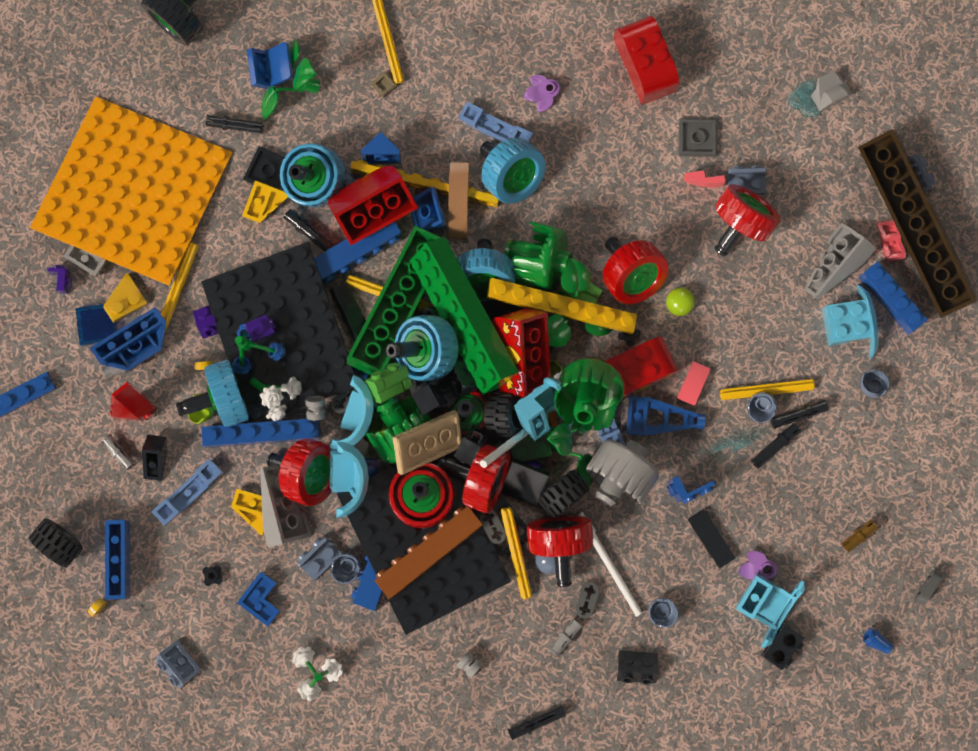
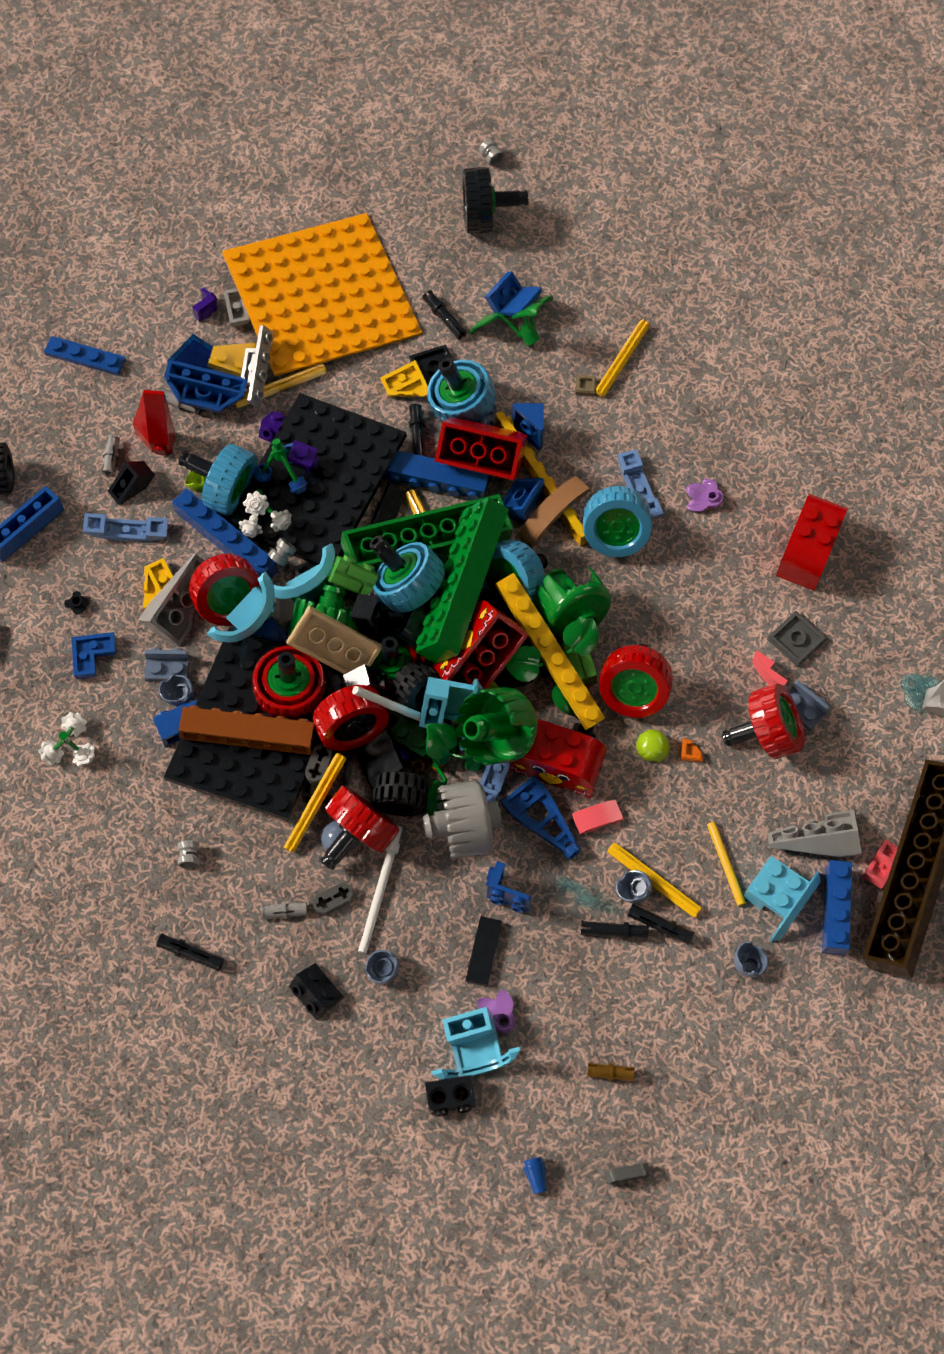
camera: 45 degrees right, 15 degrees down
(150, 292) = (256, 365): none -> light grey bracket
(706, 282) = (690, 751): none -> orange tile
(798, 334) = (739, 898): none -> yellow bar

